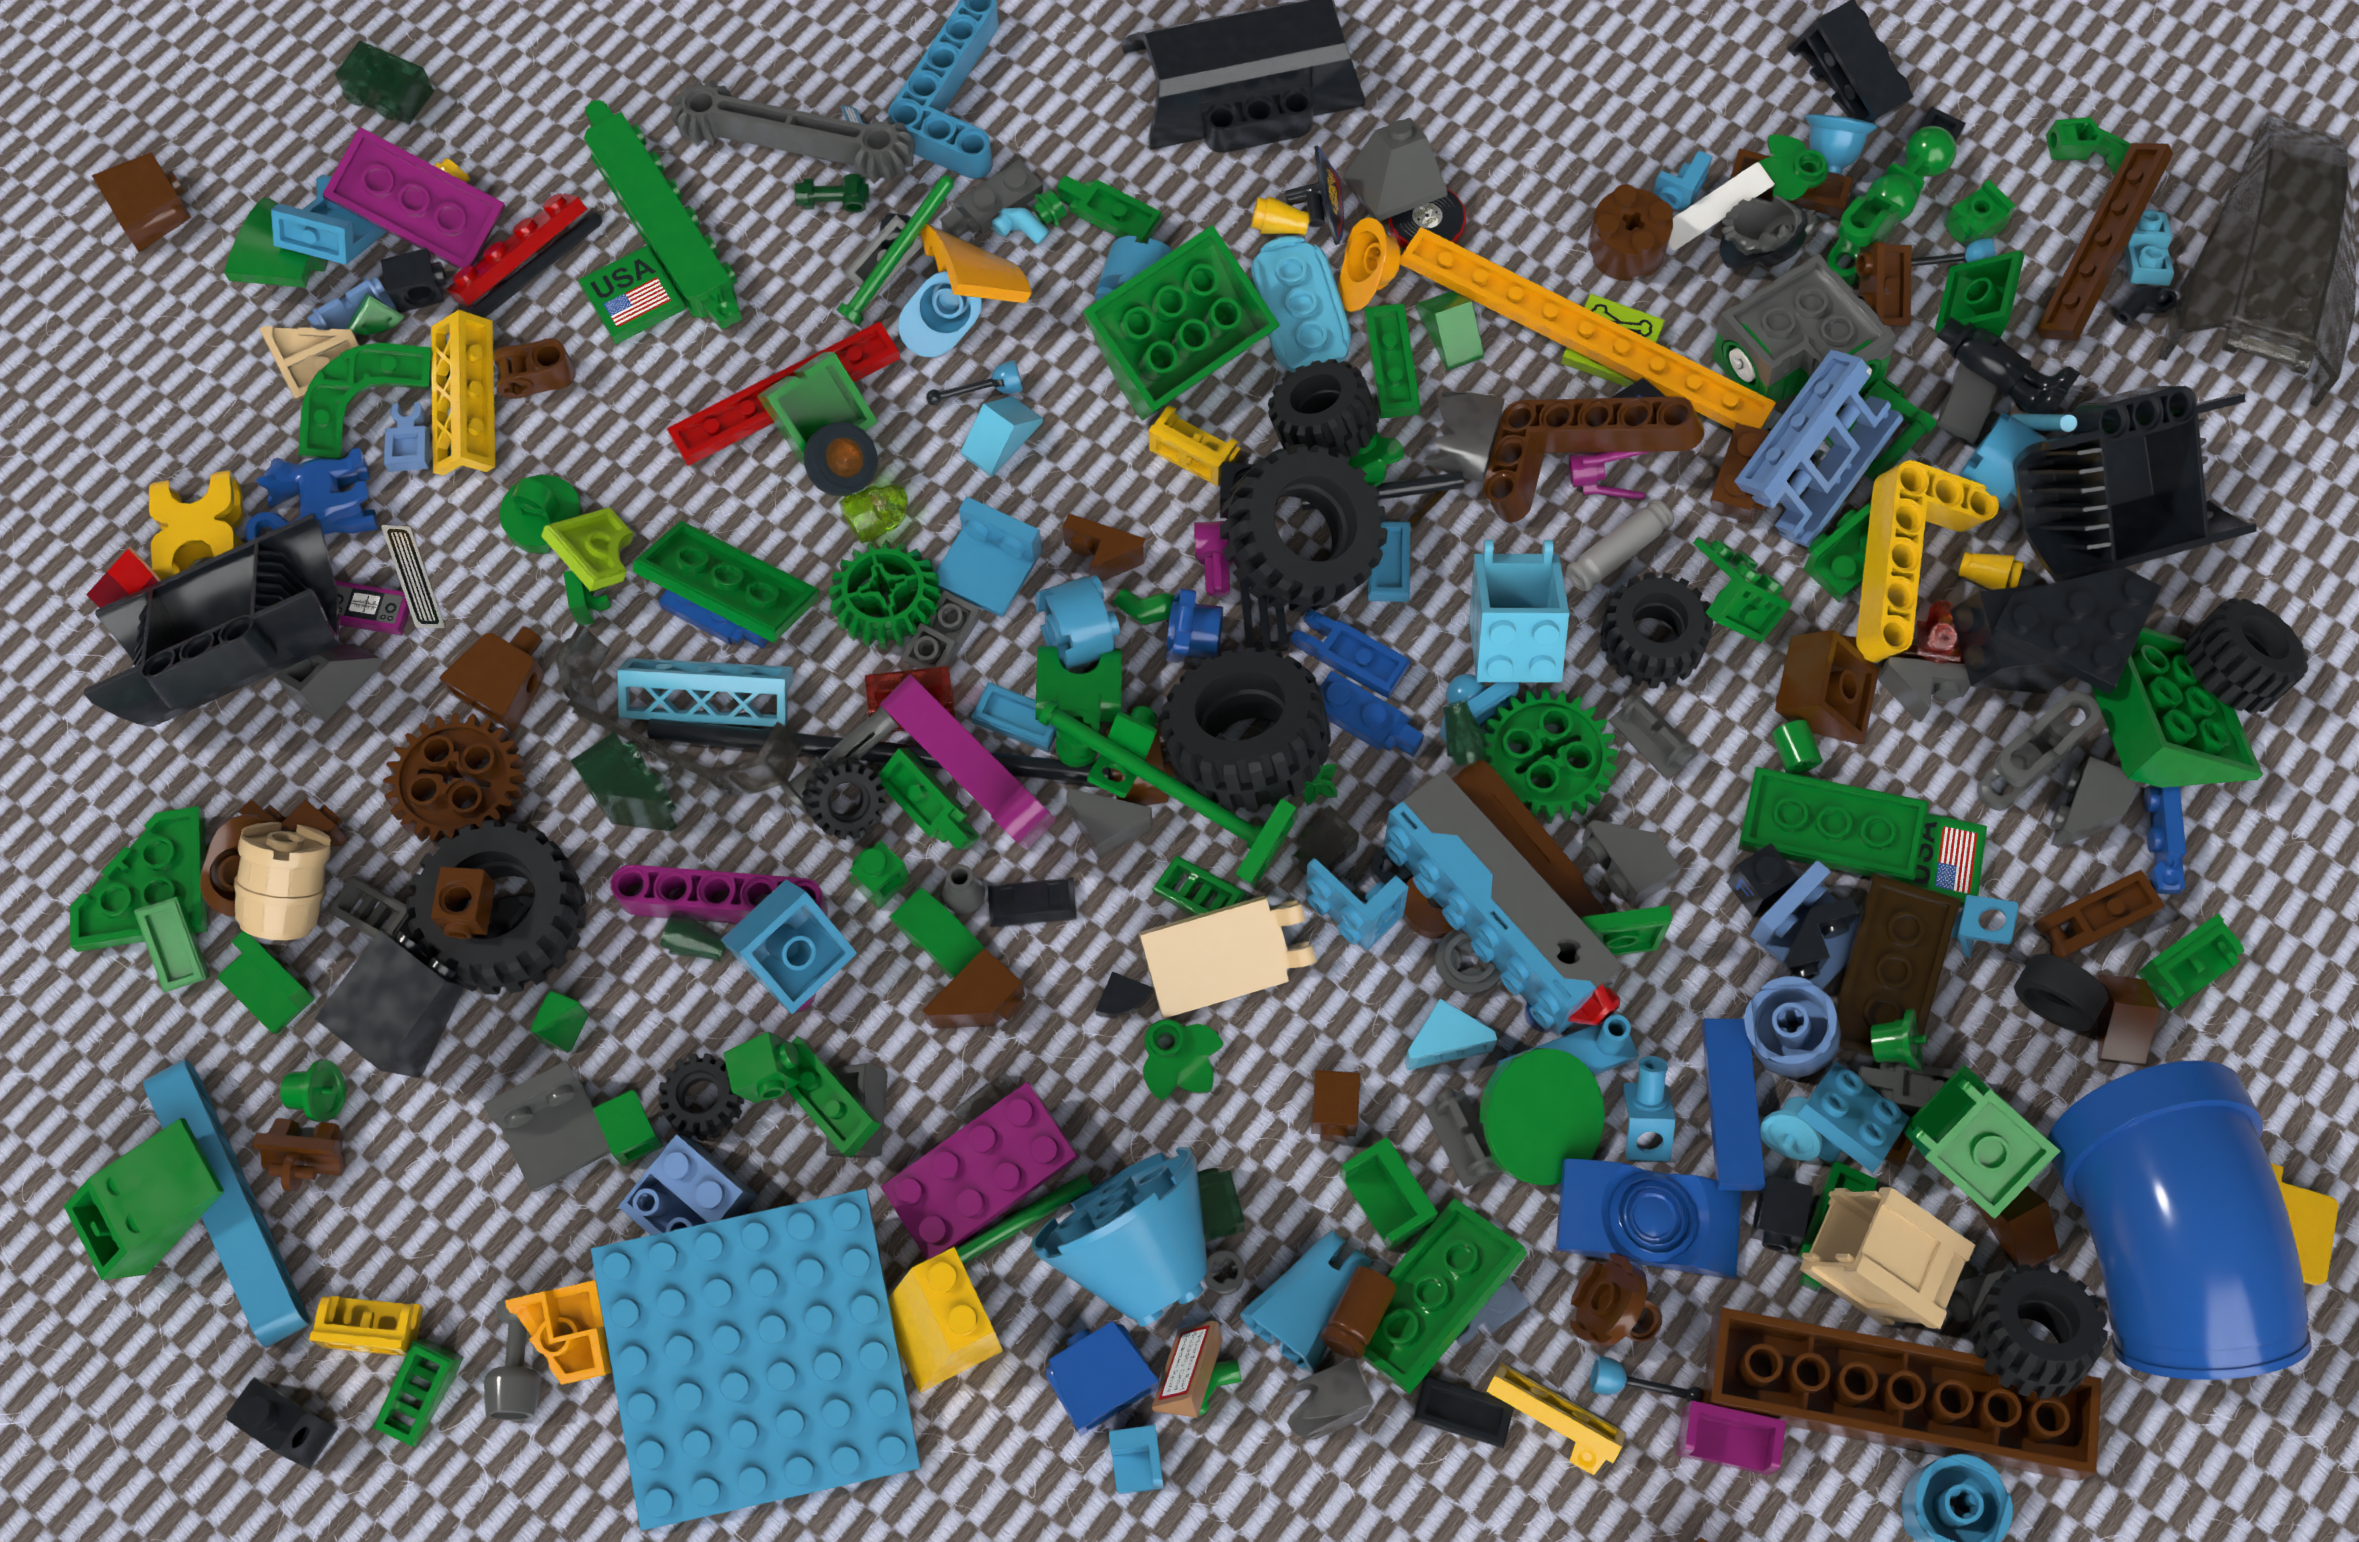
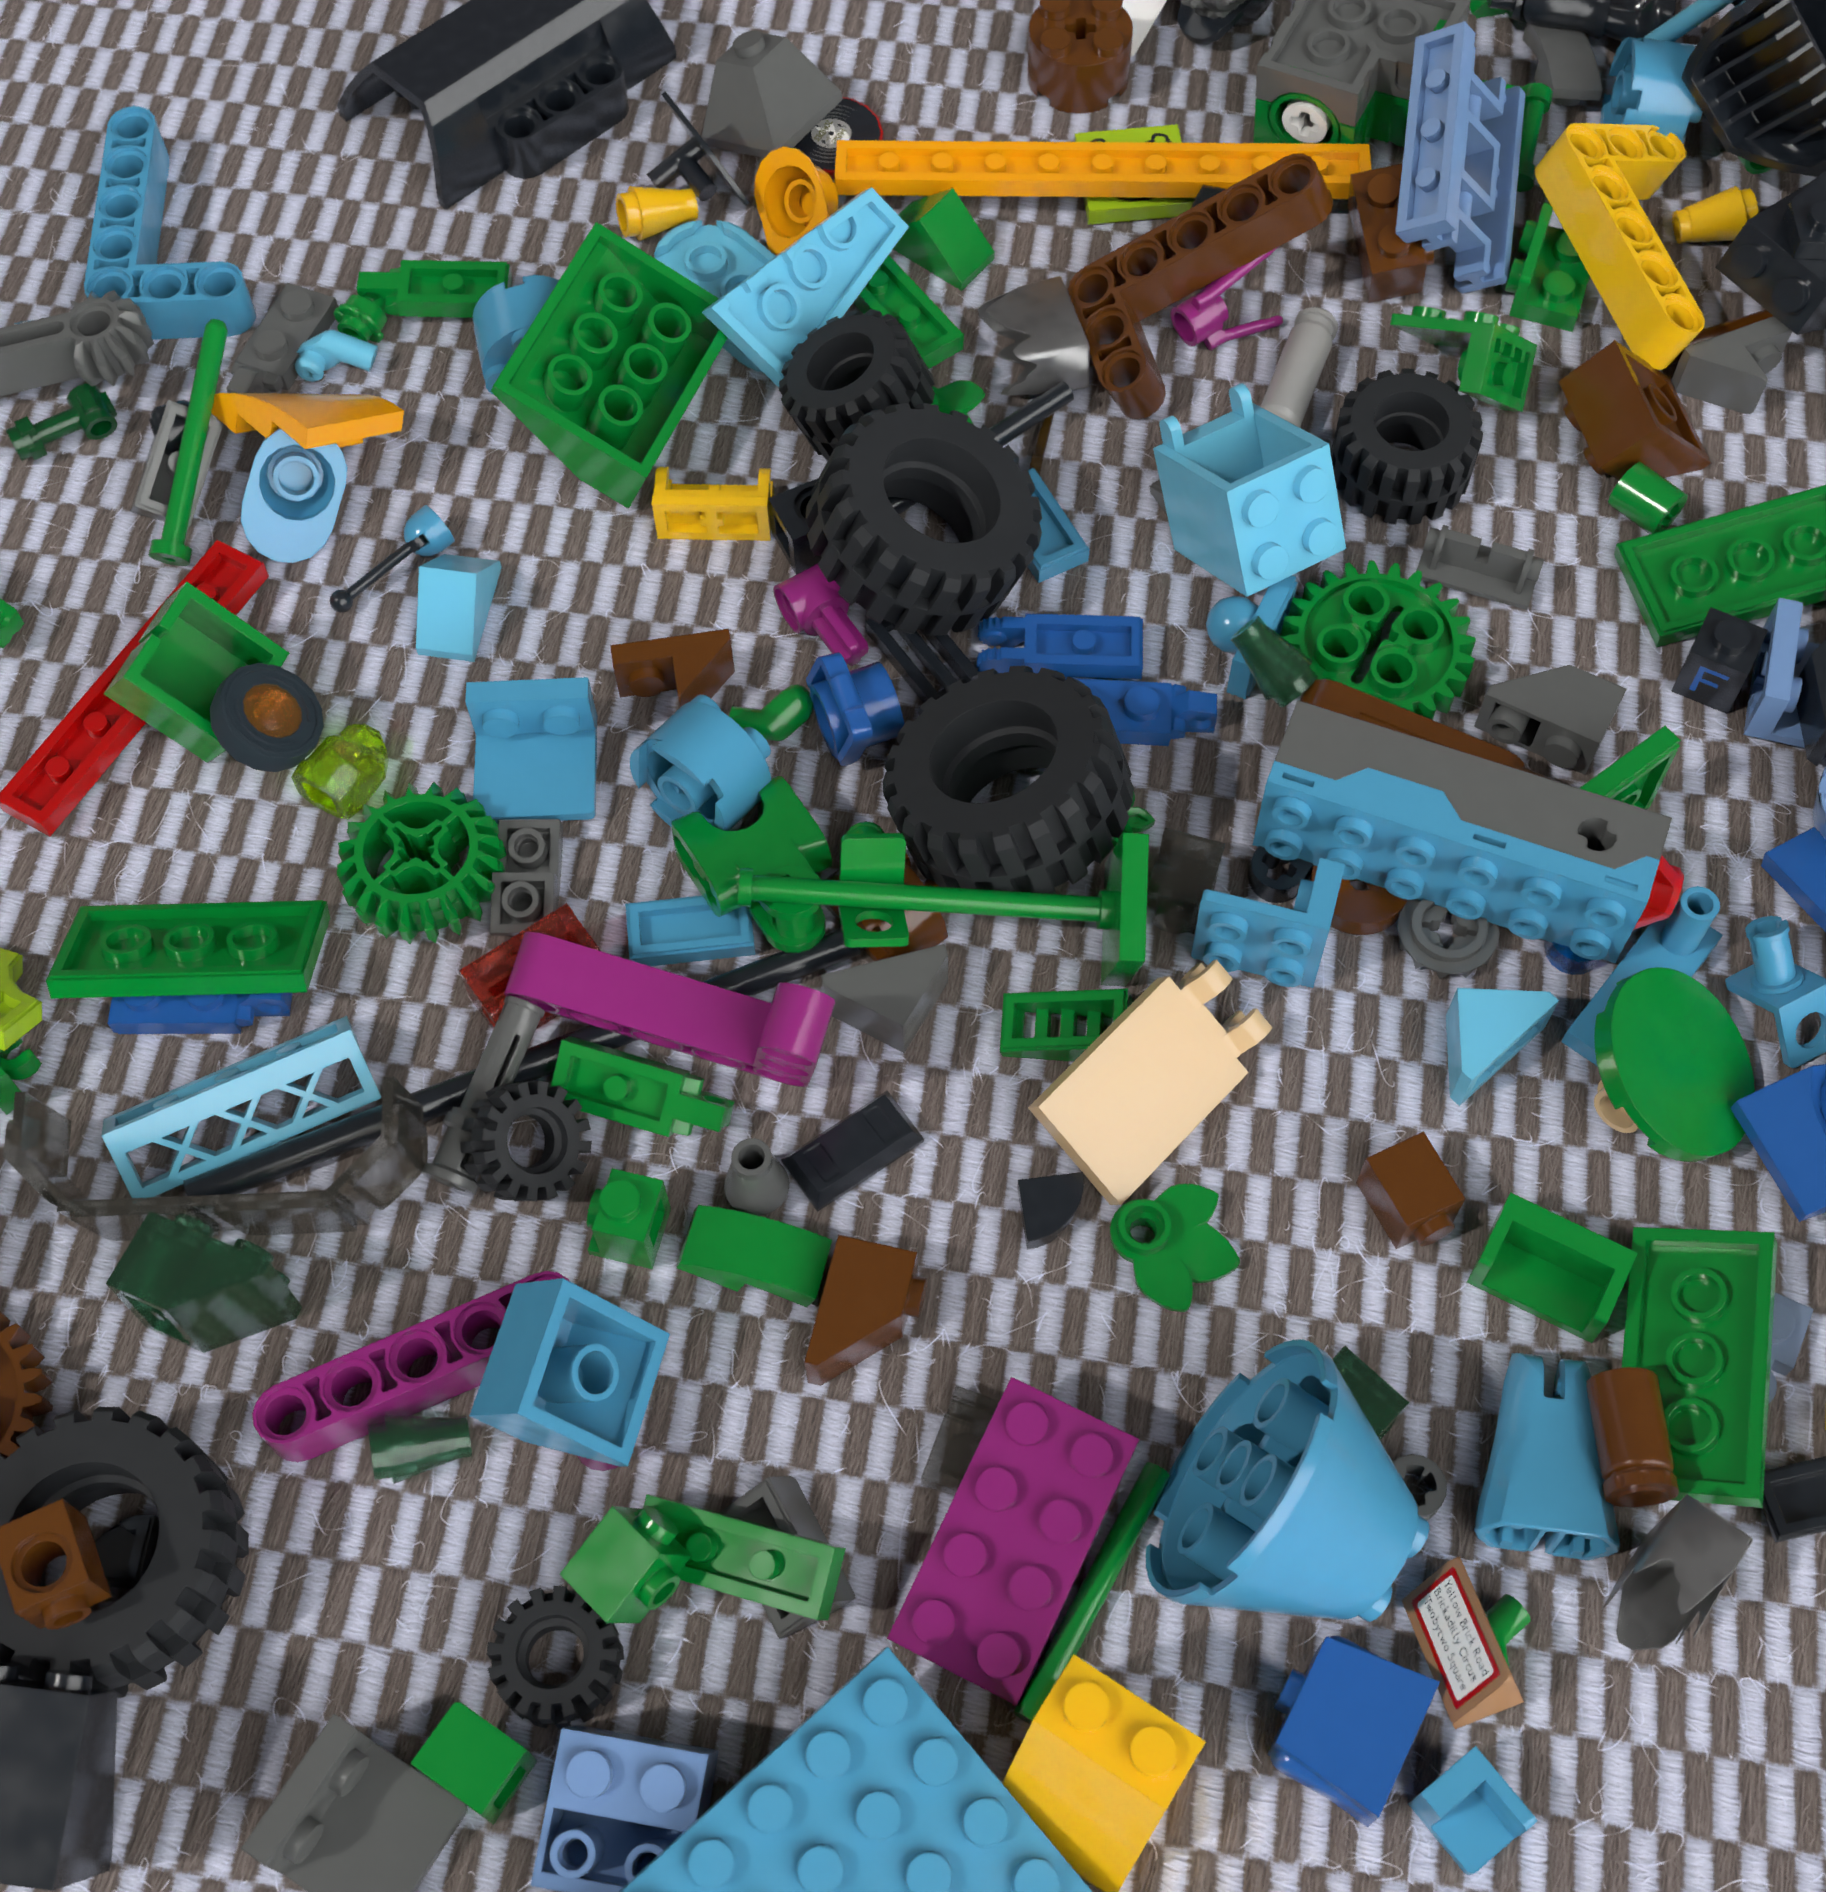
camera: 30 degrees left, 5 degrees down
(559, 1022) = (284, 1667): green slope -> none
(1336, 324) = (808, 282): none -> medium azure wing
(1461, 1137) = (1589, 1149): dark grey hinge -> none
(1938, 636) = (1724, 297): clear red hinge -> none

